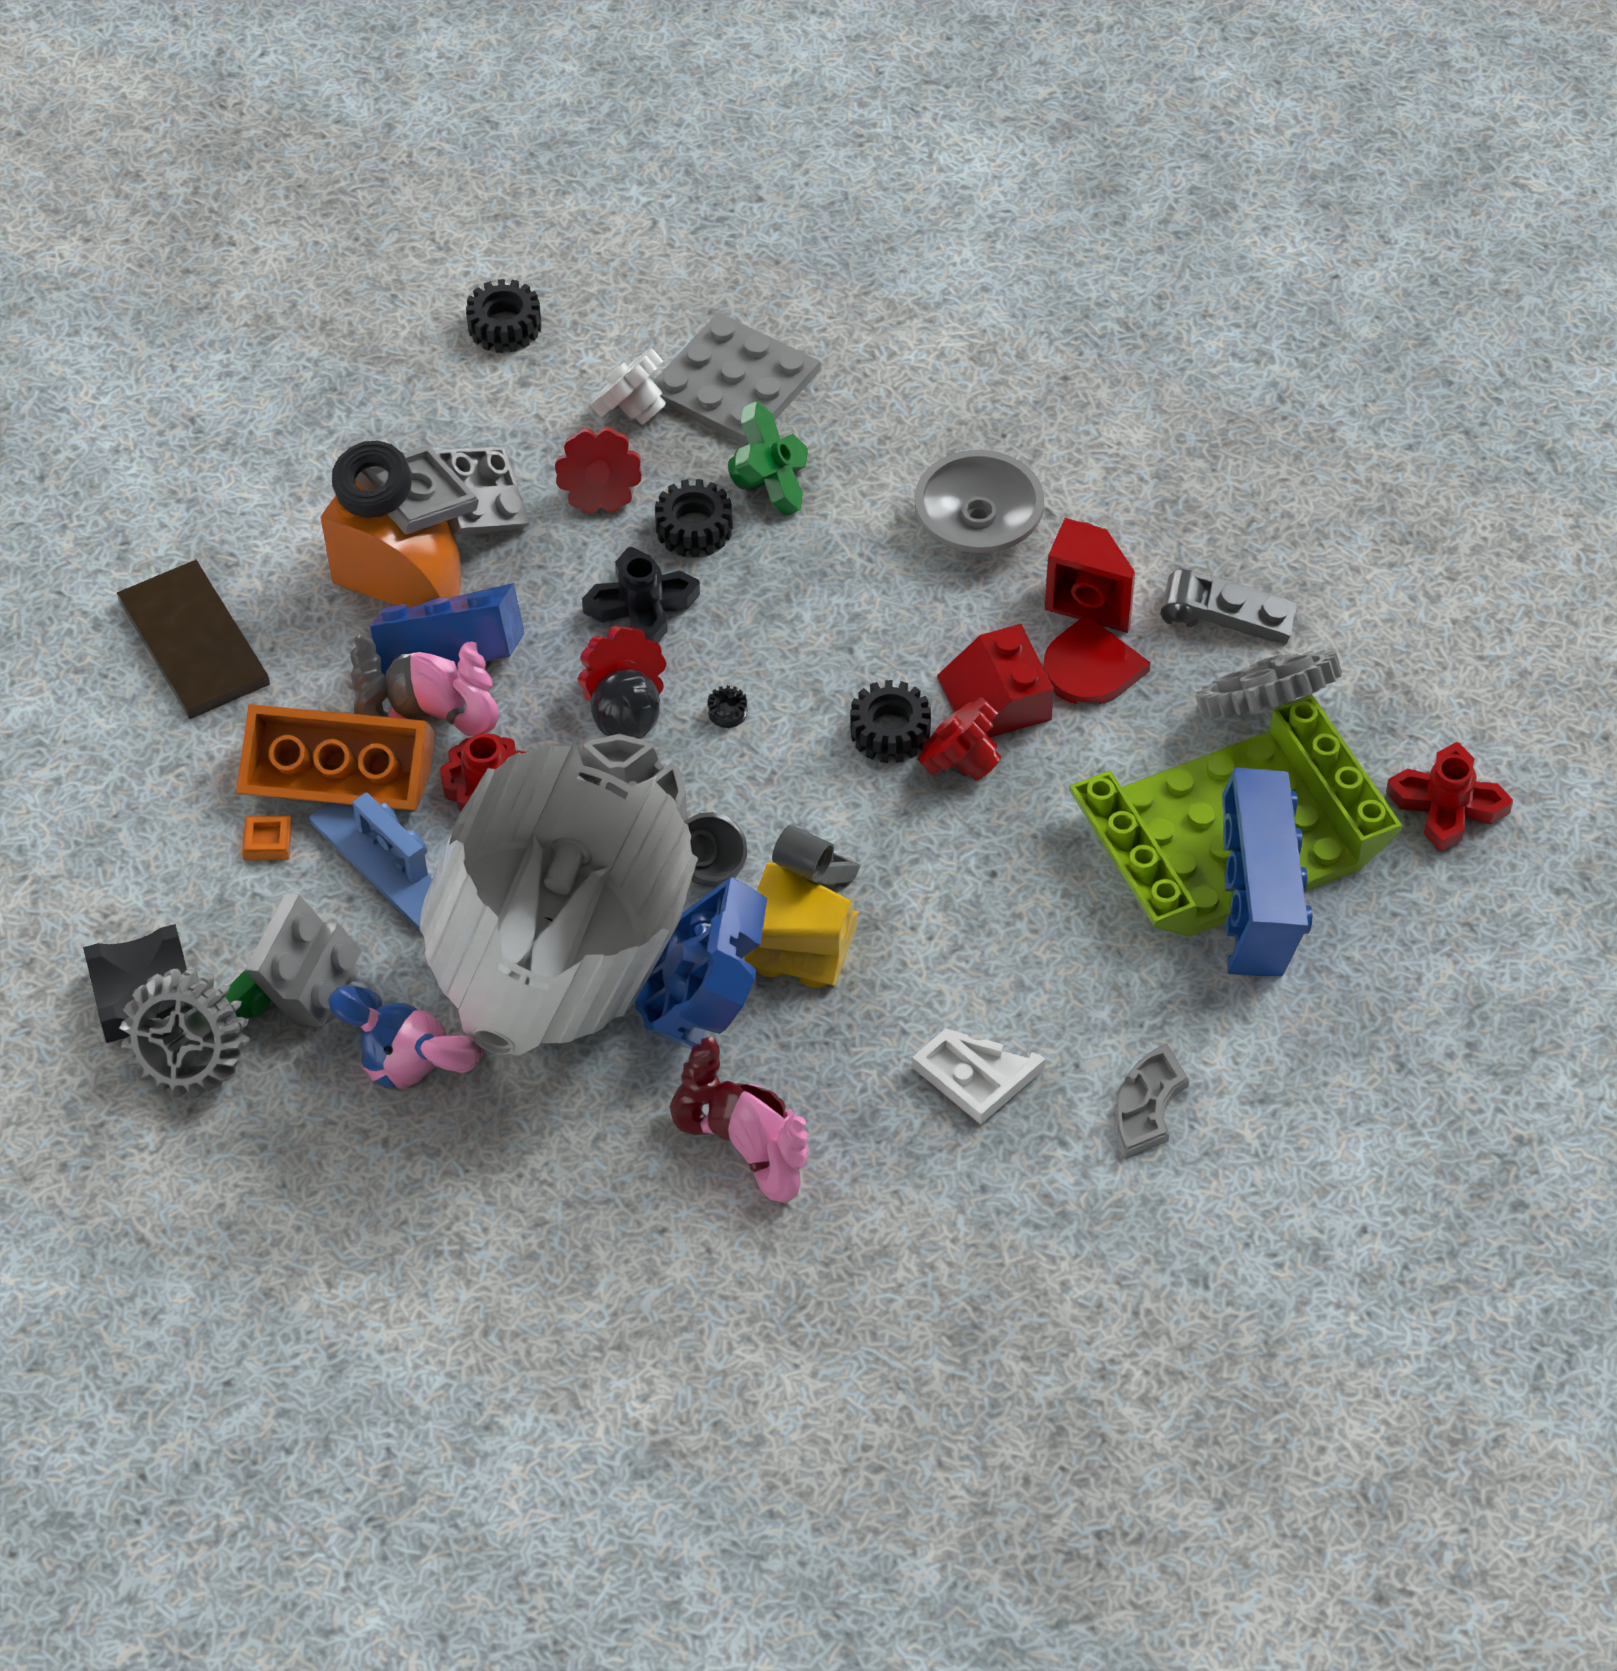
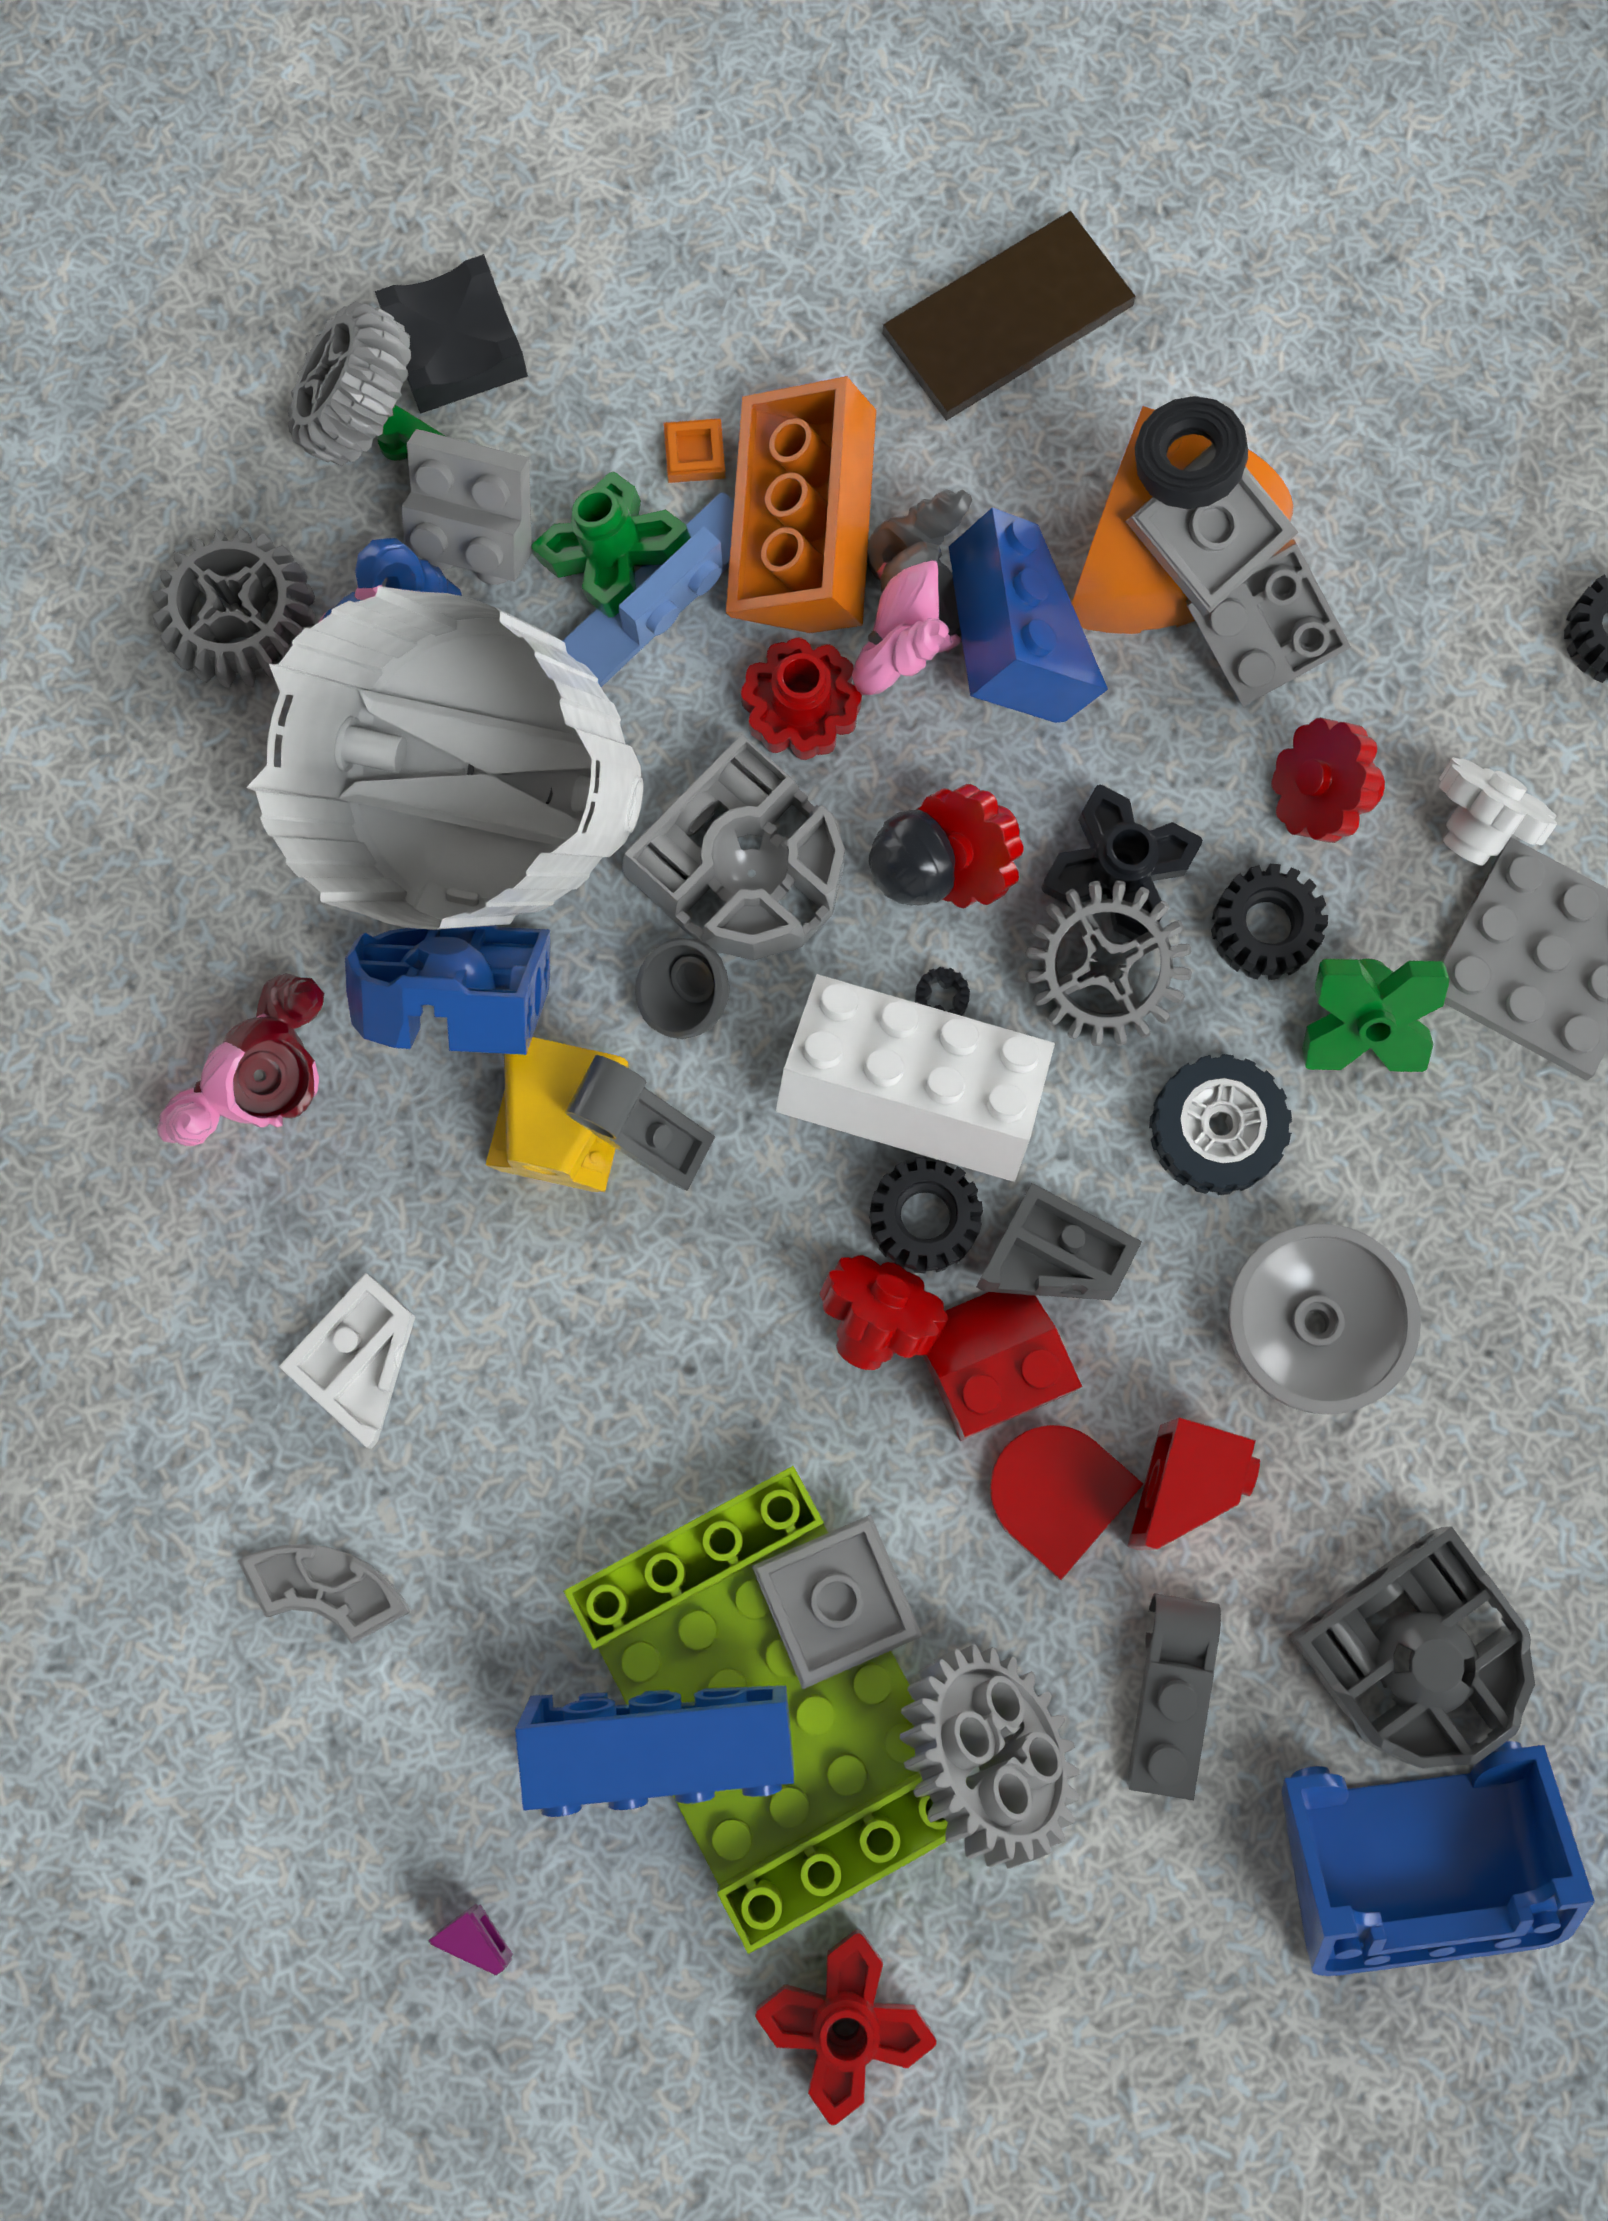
camera: 85 degrees right, 25 degrees up
(340, 881) = (608, 541): none -> green plant
(350, 1156) = (259, 572): none -> light grey gear
(711, 611) = (1131, 1008): none -> light grey gear
(792, 709) = (915, 1077): none -> white brick
(818, 553) = (1255, 1119): none -> black wheel
(921, 646) = (1058, 1252): none -> dark grey wing
(1165, 775) = (836, 1601): none -> light grey tile
(1215, 447) = (1444, 1664): none -> dark grey connector
(1334, 477) = (1434, 1864): none -> blue windscreen
(1397, 1001) = (474, 1941): none -> magenta slope

